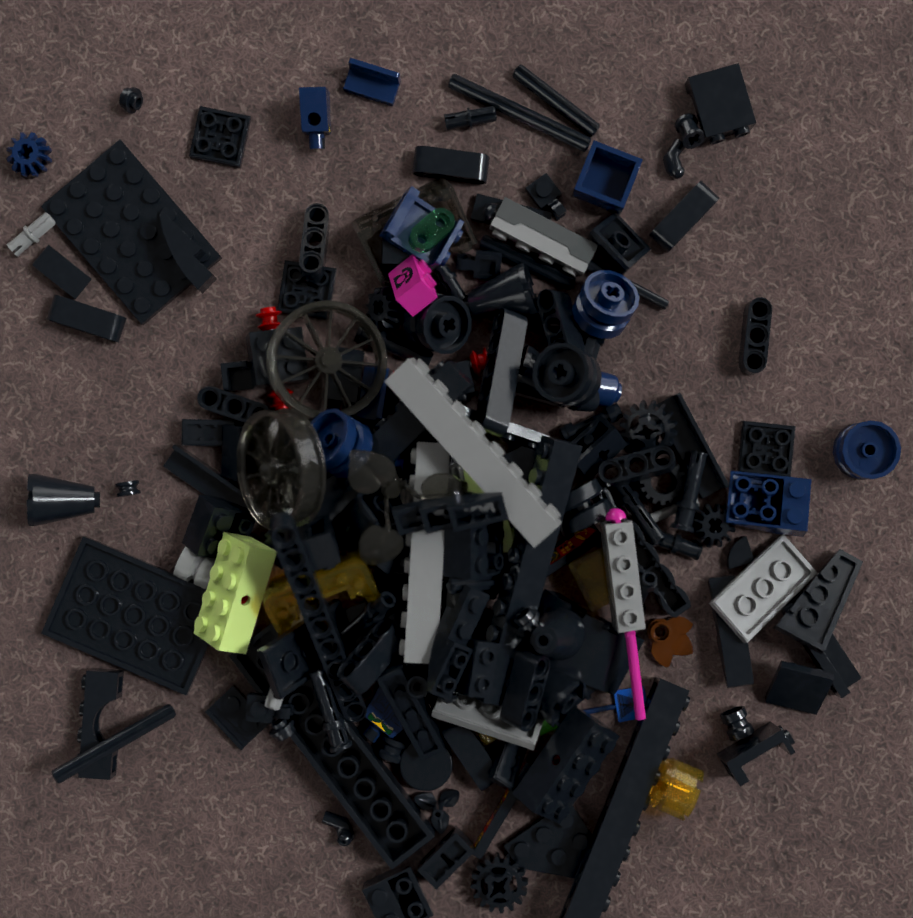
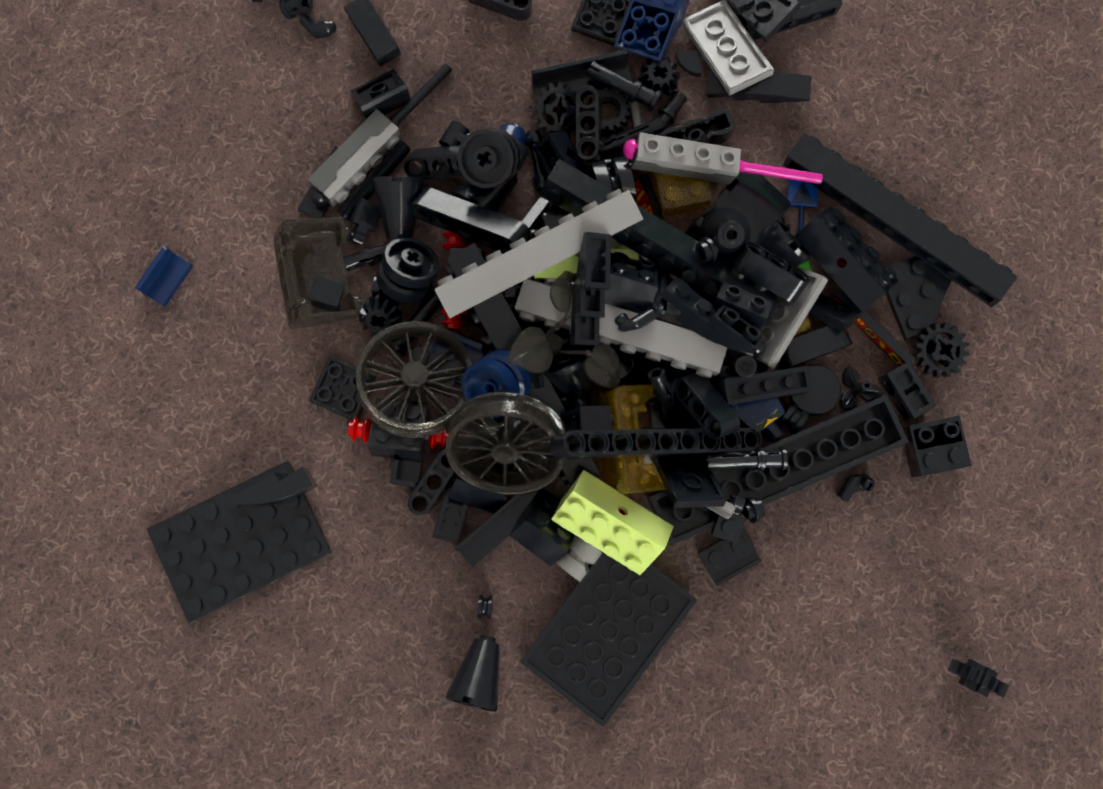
camera: 80 degrees left, 5 degrees down
(31, 234) = (212, 639): light grey axle -> none
(37, 156) = (130, 630): dark blue gear -> none
(61, 271) = (257, 618): black slope -> none
(86, 318) = (309, 604): black beam -> none
(100, 688) = (735, 701): black arch -> none
(113, 743) = (728, 681): black axle -> none
(131, 99) = (111, 508): black plate -> none
(220, 137) = (173, 433): black tile -> none
(314, 103) = (169, 333): dark blue torso -> none
(314, 232) = (292, 360): black beam -> none
(408, 214) = (316, 262): dark blue panel -> none
(413, 284) = (365, 279): dark pink brick -> none
(430, 231) = (320, 252): clear green plate -> none
(430, 567) = (639, 321): none -> black arm
(450, 163) = (262, 225): black beam -> none
(470, 118) = (225, 196): black axle -> none
(519, 112) = (233, 152): black axle -> none
(545, 194) = (316, 148): black plate -> none
(556, 100) = (232, 116): black axle -> none
(605, 304) = (432, 115): dark blue wheel -> none
(607, 177) = (317, 86): dark blue piece -> none
(672, 641) = (754, 140): reddish brown plate -> none
(676, 789) = (892, 165): clear yellow brick -> none
(737, 723) = (843, 101): black wheel -> none
(753, 746) = (868, 92): black panel -> none
(799, 687) = (824, 38): black tile -> none

